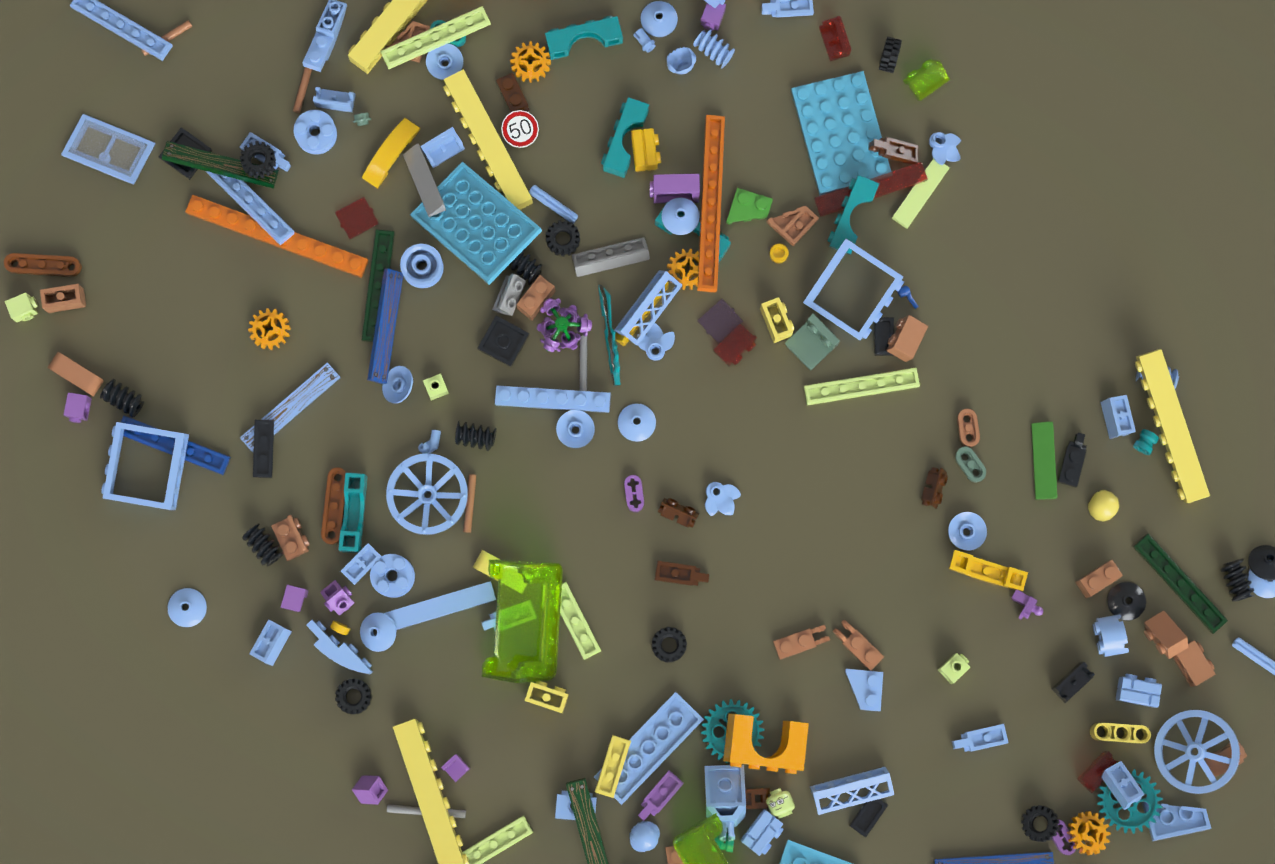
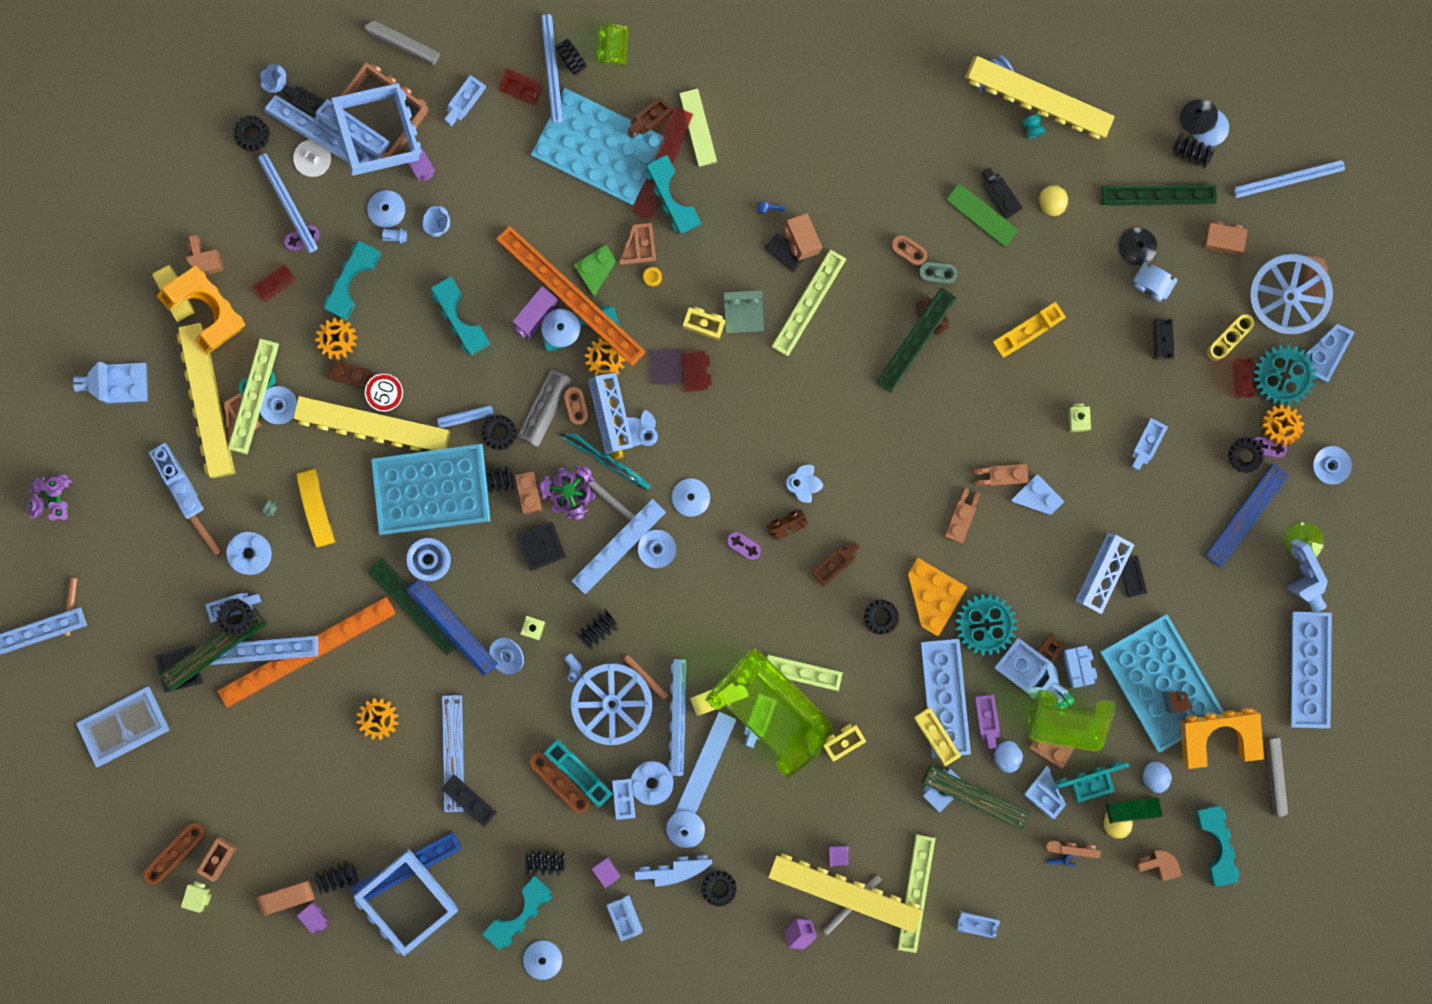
camera: 50 degrees left, 5 degrees up
(232, 558) = (501, 931): none -> teal arch
(290, 537) = (556, 836): nougat bracket -> none
(334, 100) = (235, 516): light blue hinge -> none
(337, 597) = (637, 839): medium lavender brick -> none
(340, 628) = (658, 855): yellow tile -> none
(356, 218) = (345, 578): clear red piece -> none
(424, 181) = (362, 501): light grey slope -> none
(442, 147) = (346, 464): light blue hinge -> none
(460, 553) = (677, 725): none -> light blue plate
(509, 294) = (509, 511): light grey bracket -> none
(631, 278) = (577, 406): none -> nougat plate
(644, 149) = (483, 310): yellow brick -> none
(714, 48) = (448, 186): light blue piece -> none
(721, 671) = (933, 595): none -> light orange plate
(740, 749) = (1040, 599): light orange arch -> none
(780, 803) = (1069, 634): yellowish green head -> none
(868, 49) = (551, 68): none -> light blue axle
(876, 314) = (699, 246): light blue window -> none
(905, 490) = (916, 340): none -> dark green tile
(946, 149) = (681, 78): light blue plate -> none
(974, 524) = (993, 313): light blue dish -> none
(1029, 604) = (1078, 320): medium lavender piece -> none
(1099, 578) = (1105, 252): nougat brick -> none
(1118, 416) = (996, 130): light blue hinge -> none
(1122, 785) = (1270, 370): light blue hinge -> none
(1138, 691) = (1211, 297): light blue brick -> none
(1166, 635) = (1188, 240): nougat brick -> none

